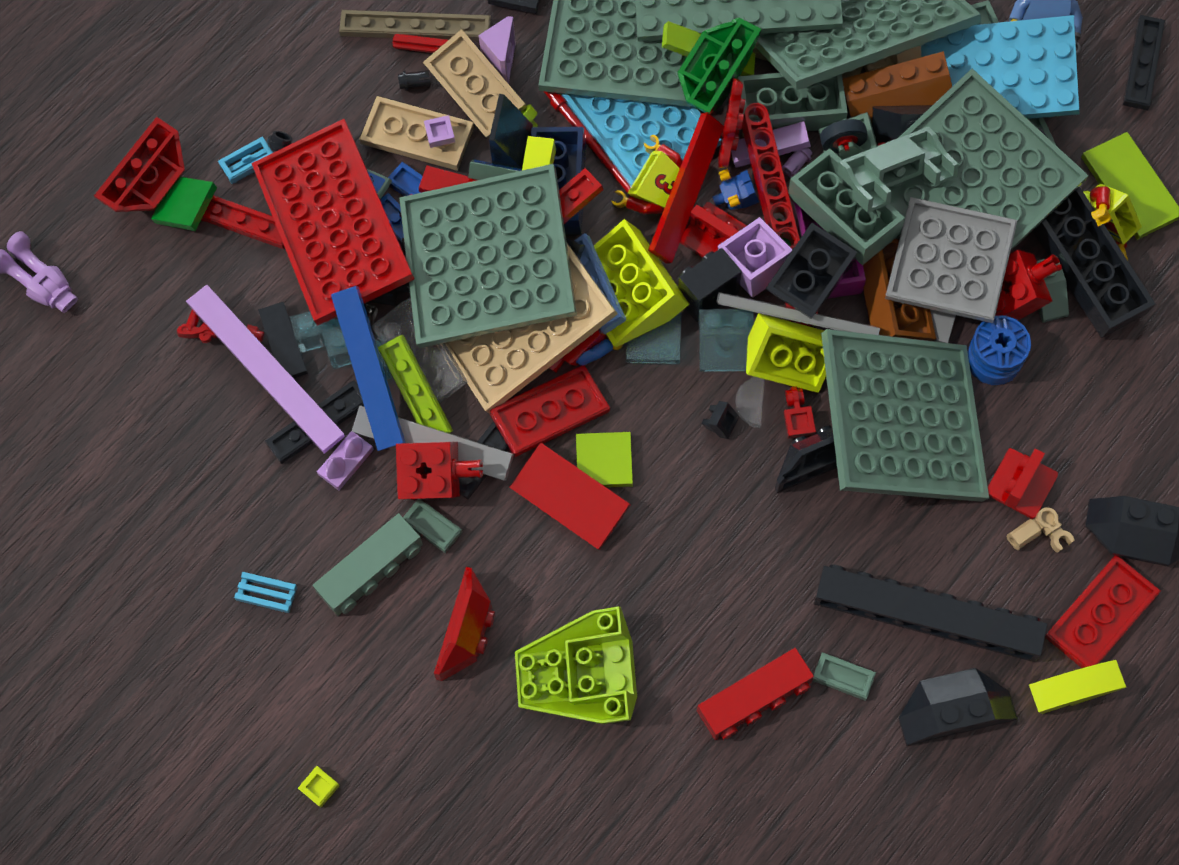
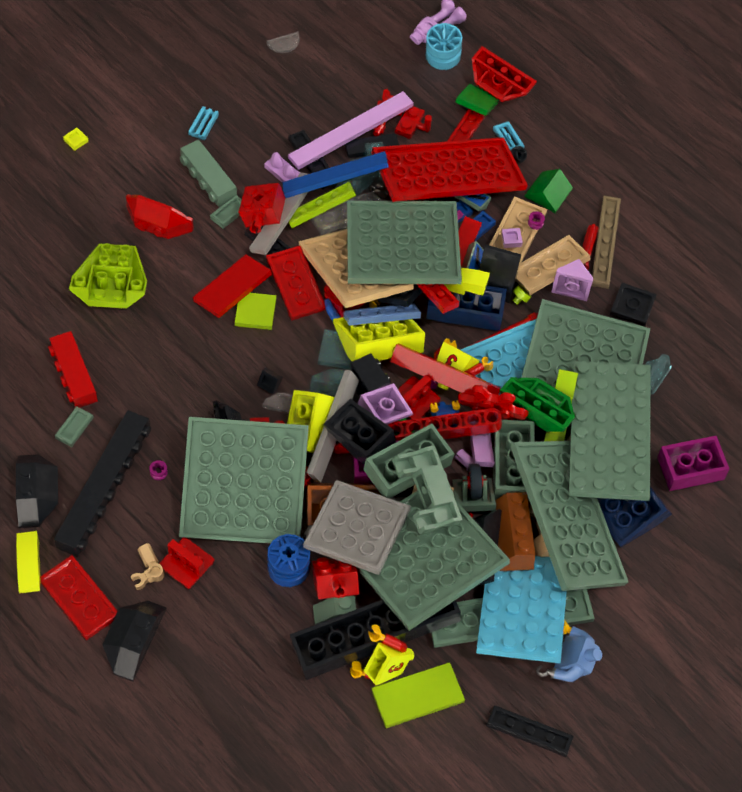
camera: 90 degrees right, 10 degrees down
(89, 254) = (443, 46): none -> medium azure wheel
(89, 496) = (284, 43): none -> clear tile
(234, 293) = (411, 121): none -> red plate
(335, 99) = (550, 189): none -> green slope
(404, 98) = (538, 216): none -> magenta bush
(411, 79) = (559, 229): black pin -> none
(898, 549) = (158, 476): none -> magenta bush

